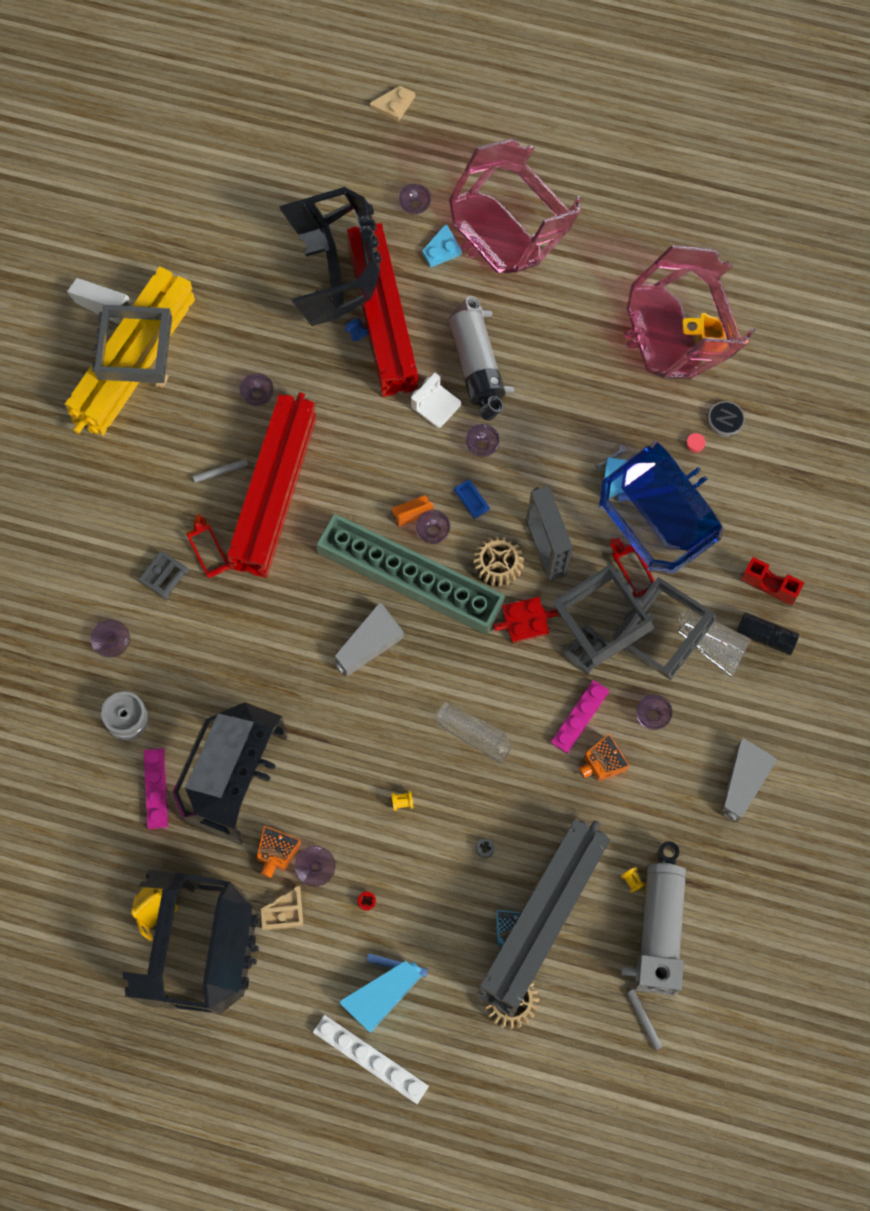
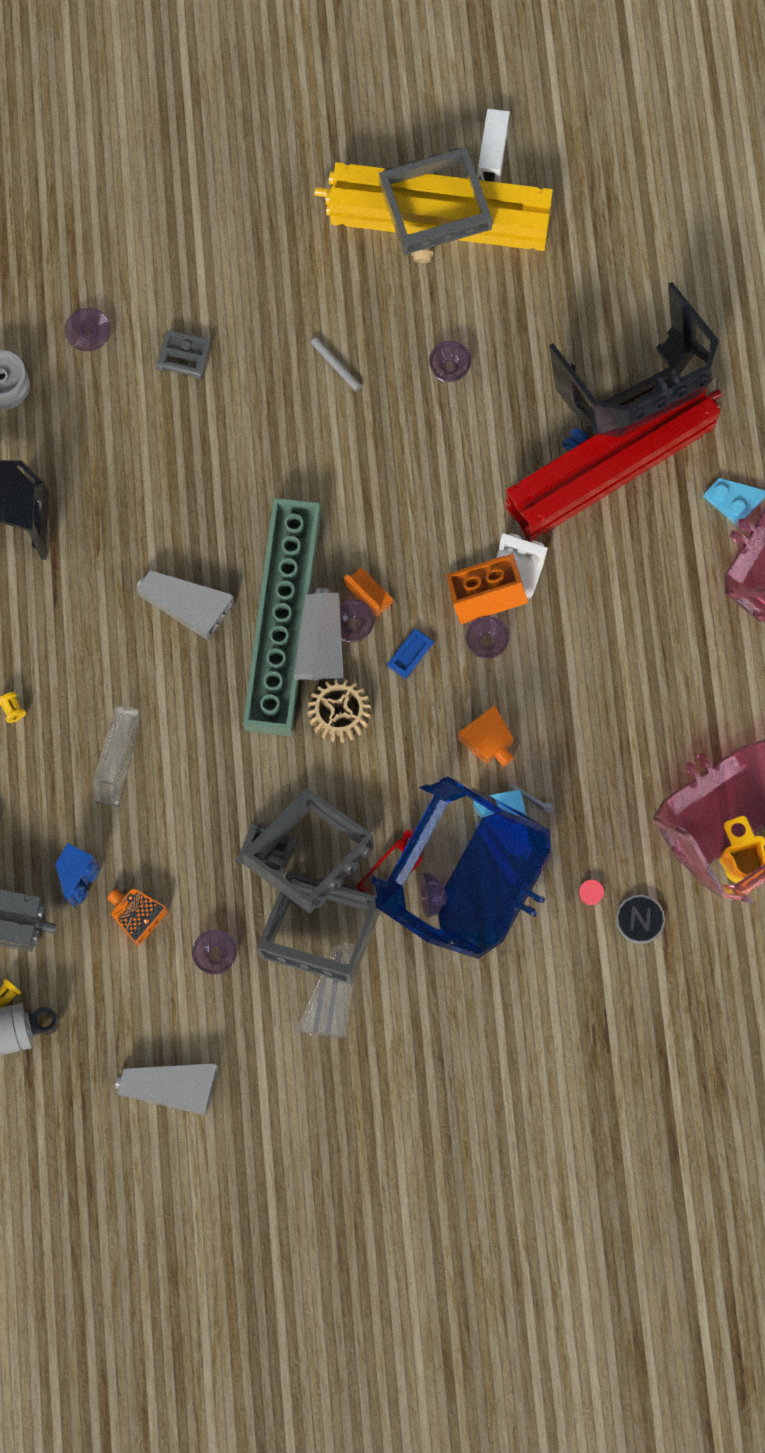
camera: 75 degrees right, 5 degrees up
(198, 528) = (251, 369): red sword -> none
(272, 485) = (334, 424): red brick -> none
(440, 550) = (320, 638): none -> light grey slope
(445, 426) = (486, 588): none -> orange slope
(477, 358) = (593, 590): light grey piece -> none
(525, 619) = (278, 767): red plate -> none
(548, 533) = (382, 748): dark grey window -> none
(558, 467) = (488, 737): none -> orange torso
(558, 792) = (75, 873): none -> blue slope
(580, 717) = (182, 871): dark pink plate -> none
(663, 546) = (432, 894): none -> clear purple piece
(761, 632) = (364, 1056): black piece -> none
(783, 588) = (434, 1040): red arch -> none

